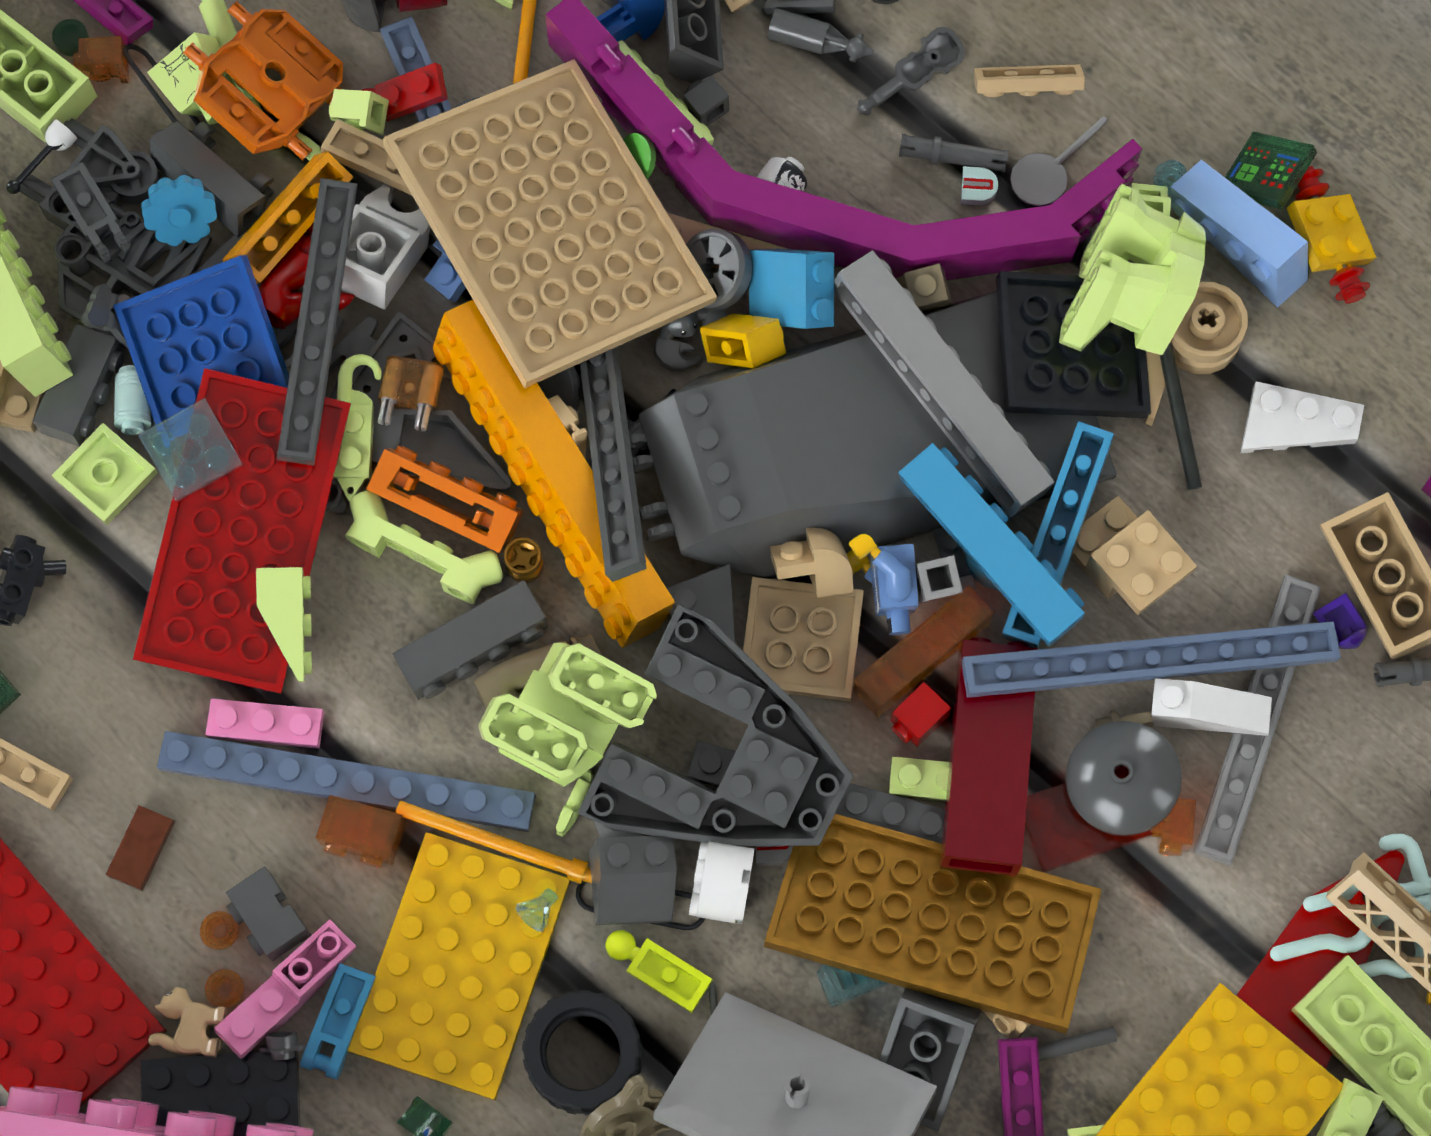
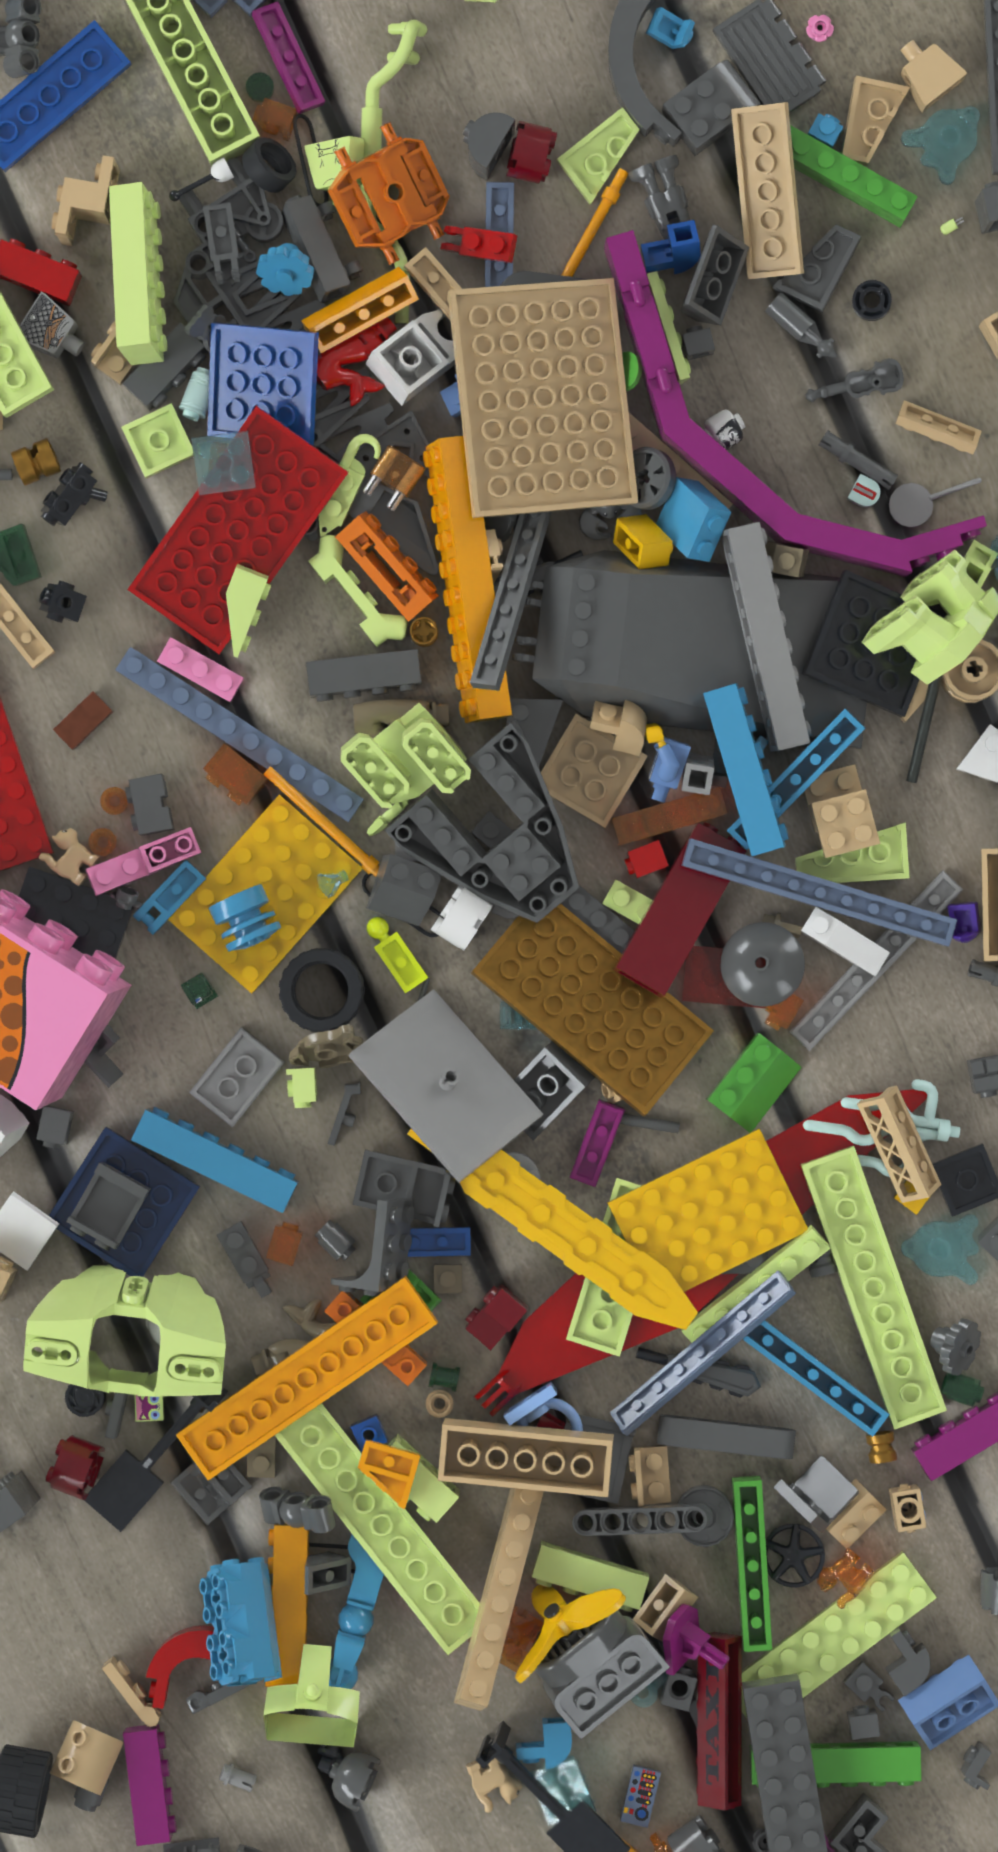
camera: 25 degrees right, 15 degrees up
(57, 711) = (62, 602): none -> black brick
(113, 108) = (278, 158): none -> black tyre
(317, 322) = (349, 402): dark grey tile -> none
(359, 109) = (444, 245): yellowish green brick -> none
(438, 993) = (245, 918): none -> dark azure wheel
(1181, 932) = (754, 1082): none -> bright green slope
(1191, 604) = (871, 863): none -> yellowish green wing

